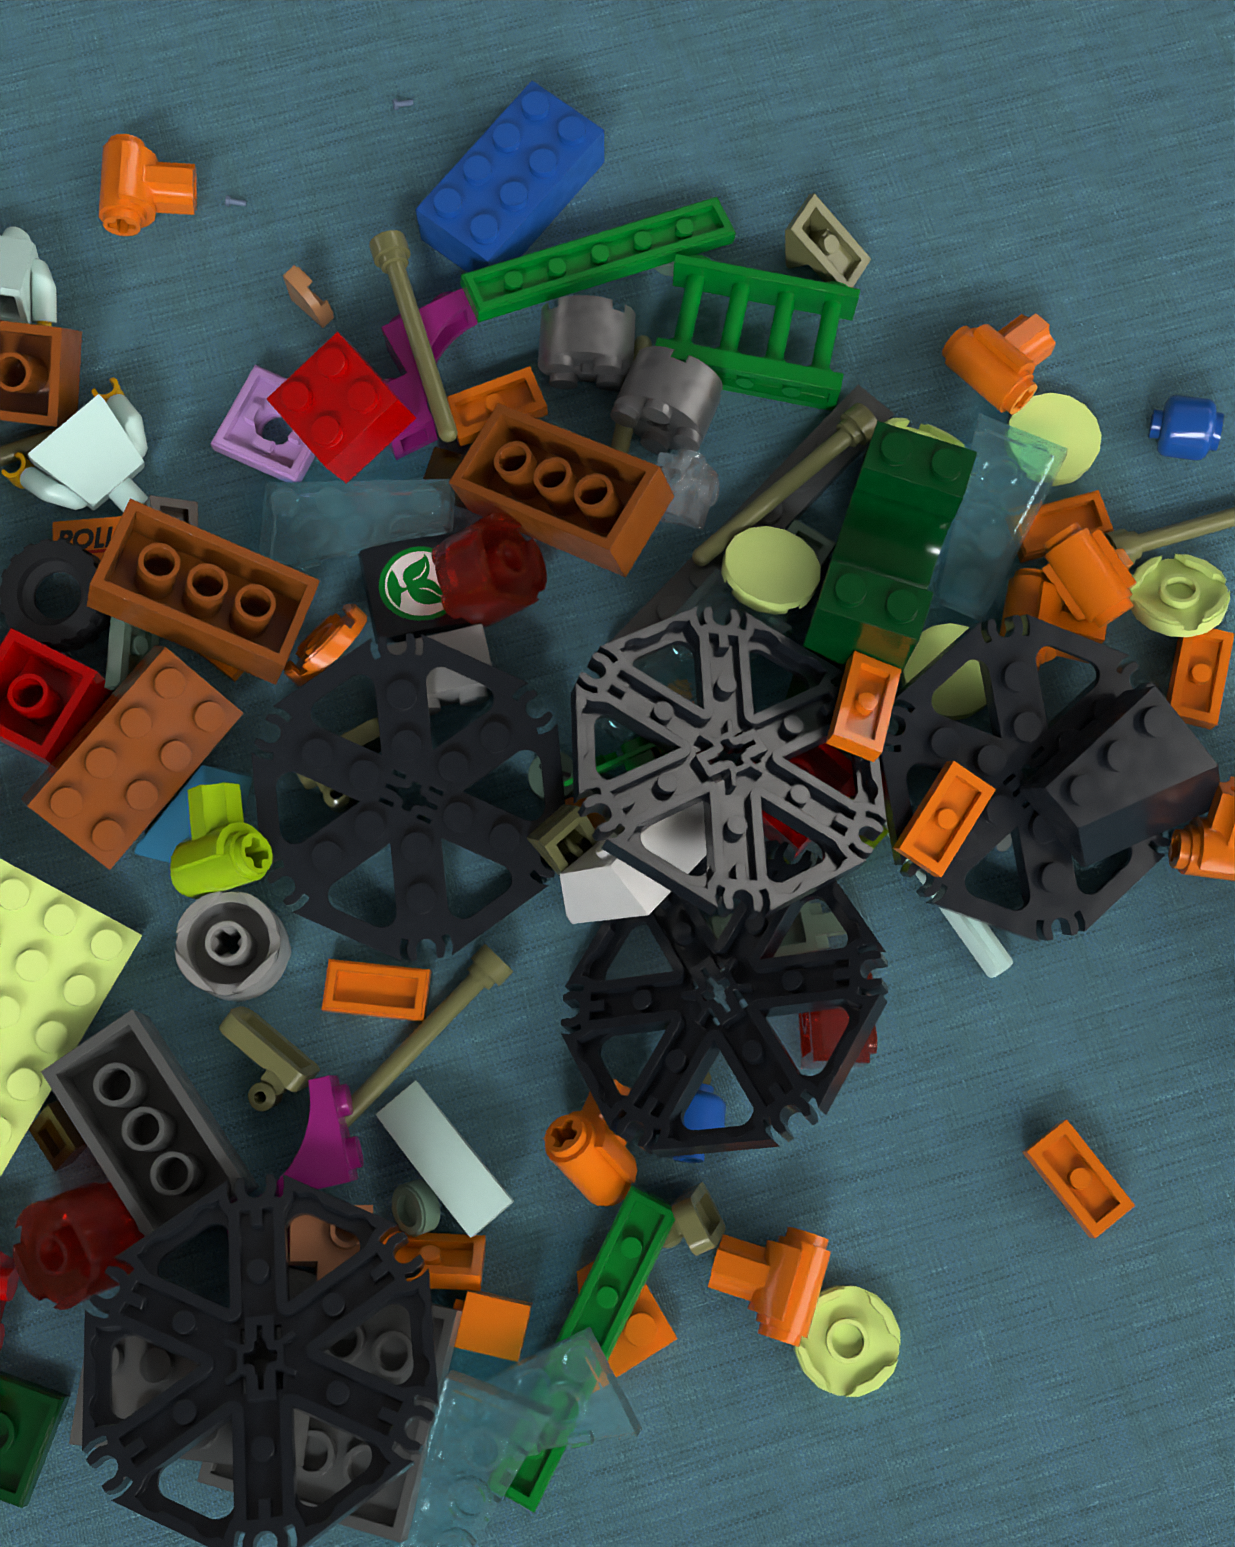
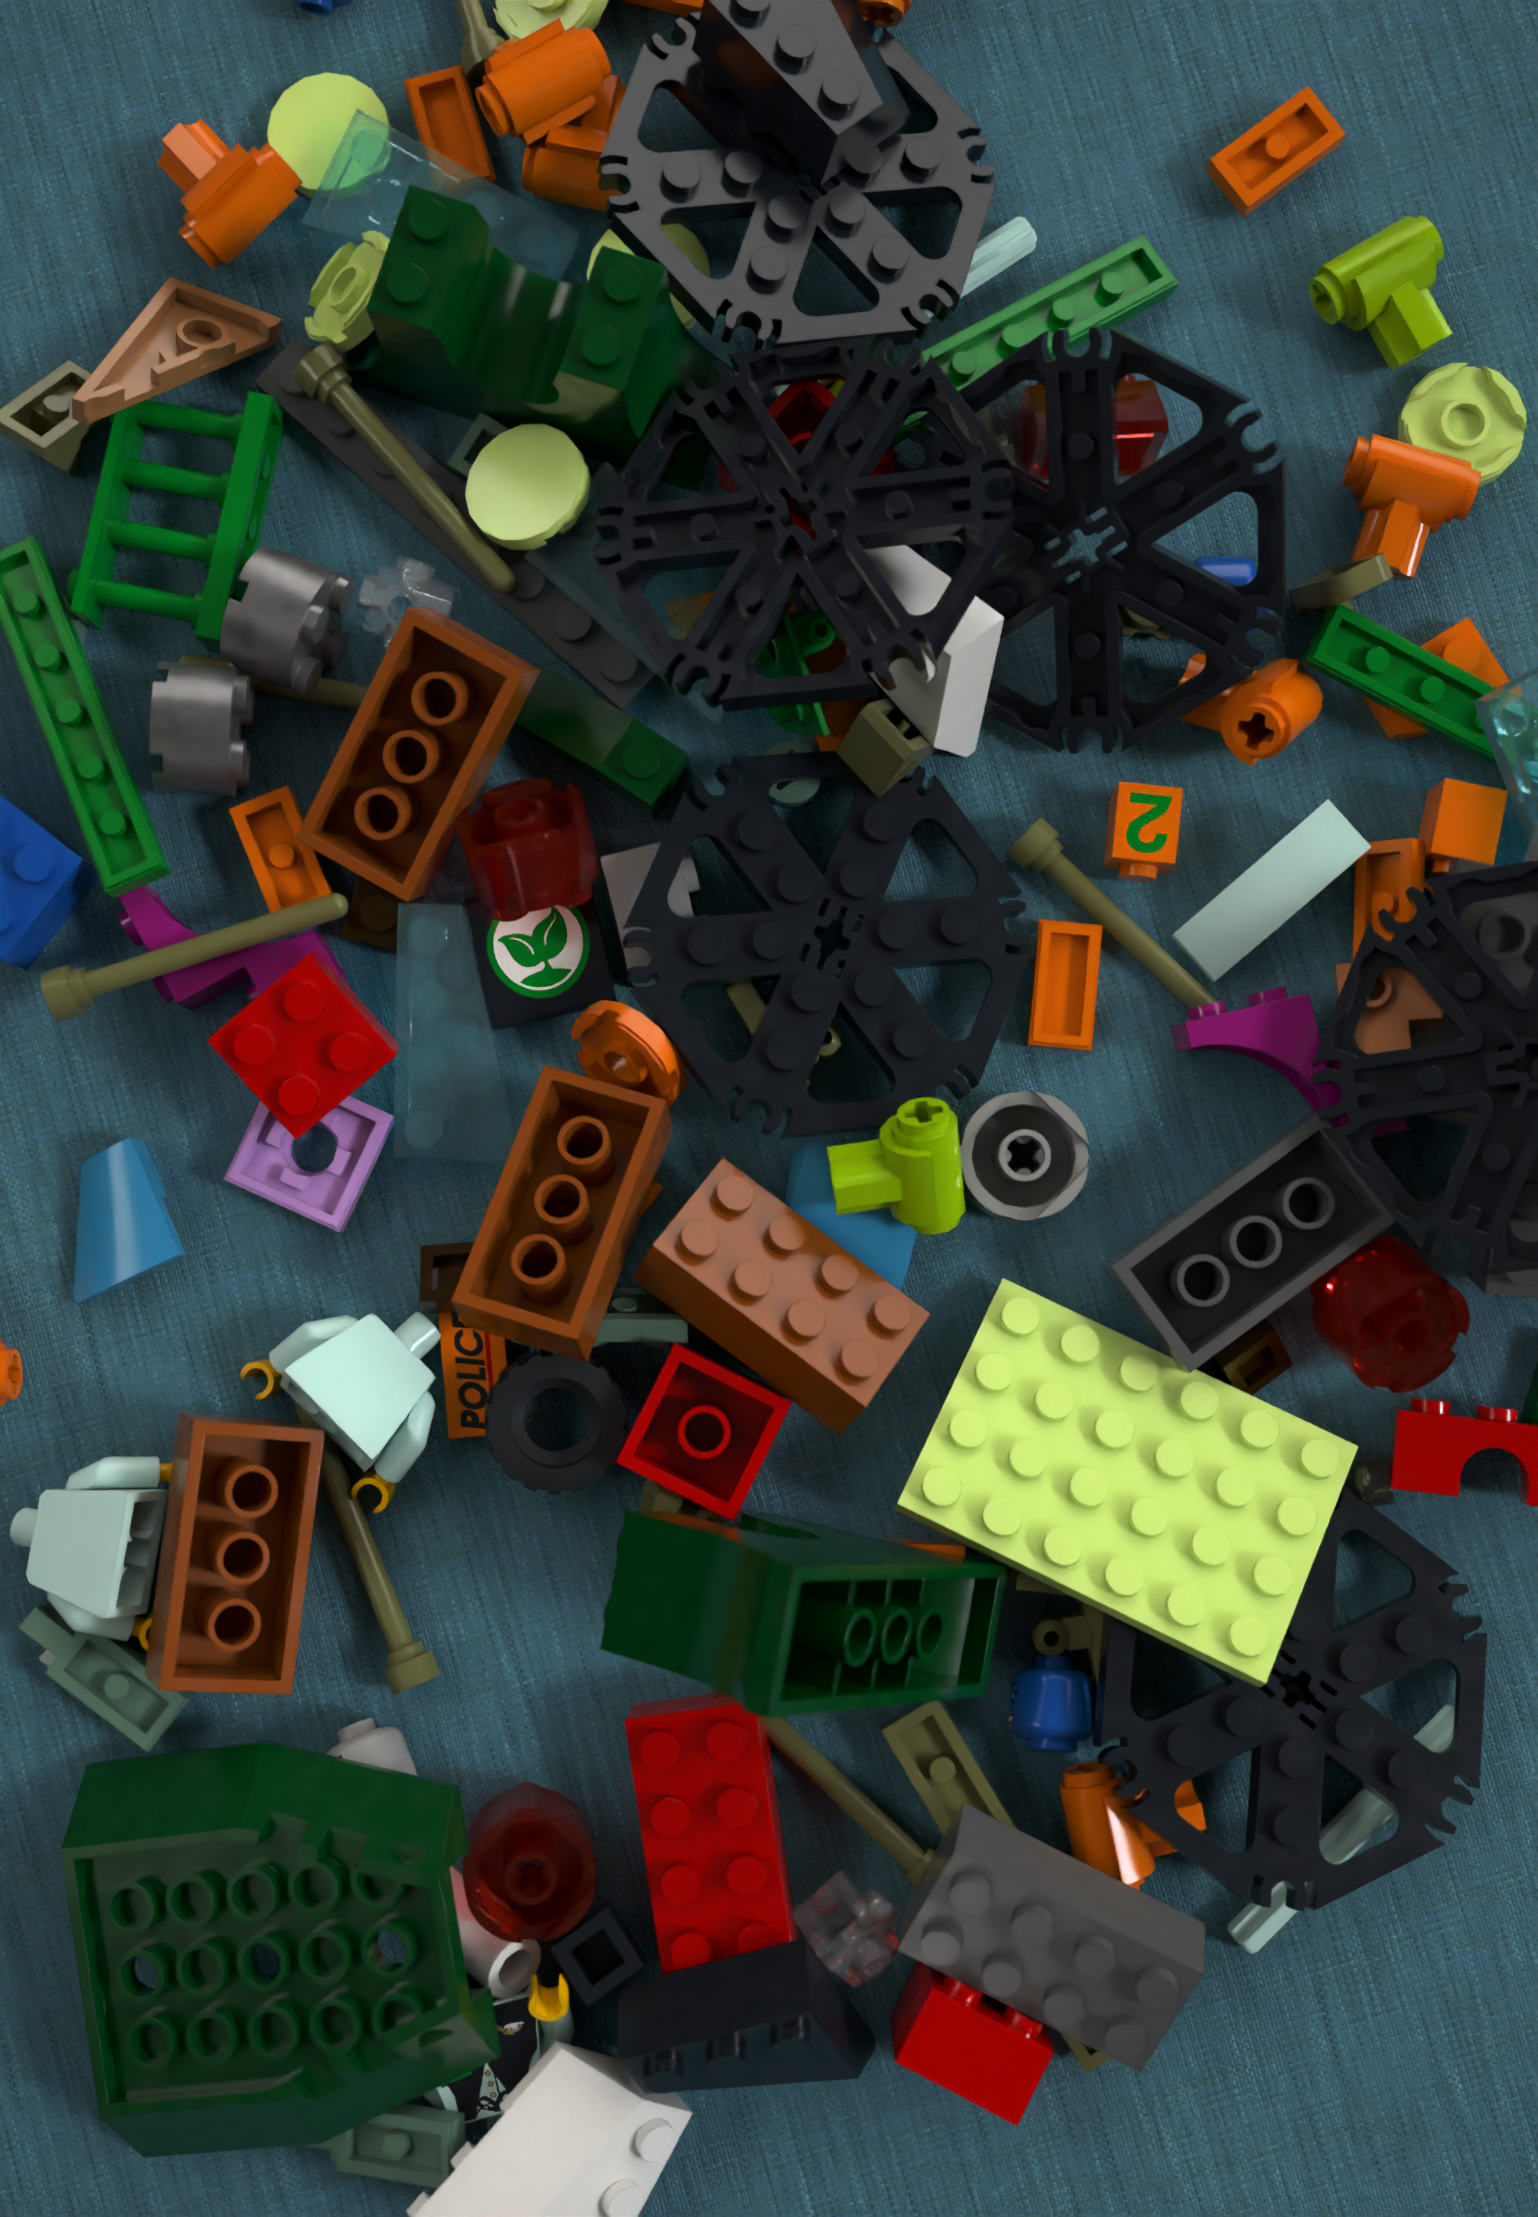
camera: 85 degrees left, 10 degrees up
(232, 300) = (121, 1221): none -> dark azure slope
(285, 1063) = (1155, 1094): olive piece -> none
(297, 286) = (112, 1124): medium nougat tile -> none
(415, 1208) = (1328, 923): sand green tile -> none
(496, 1052) = (1142, 830): none -> orange brick
(577, 631) = (603, 742): none -> dark green slope
(864, 706) = (727, 358): orange plate -> none
(882, 324) = (172, 342): none -> medium nougat wing
(918, 976) = (1091, 296): none -> green tile
(944, 818) = (866, 269): orange plate -> none
(960, 1270) = (1386, 289): none -> lime piece

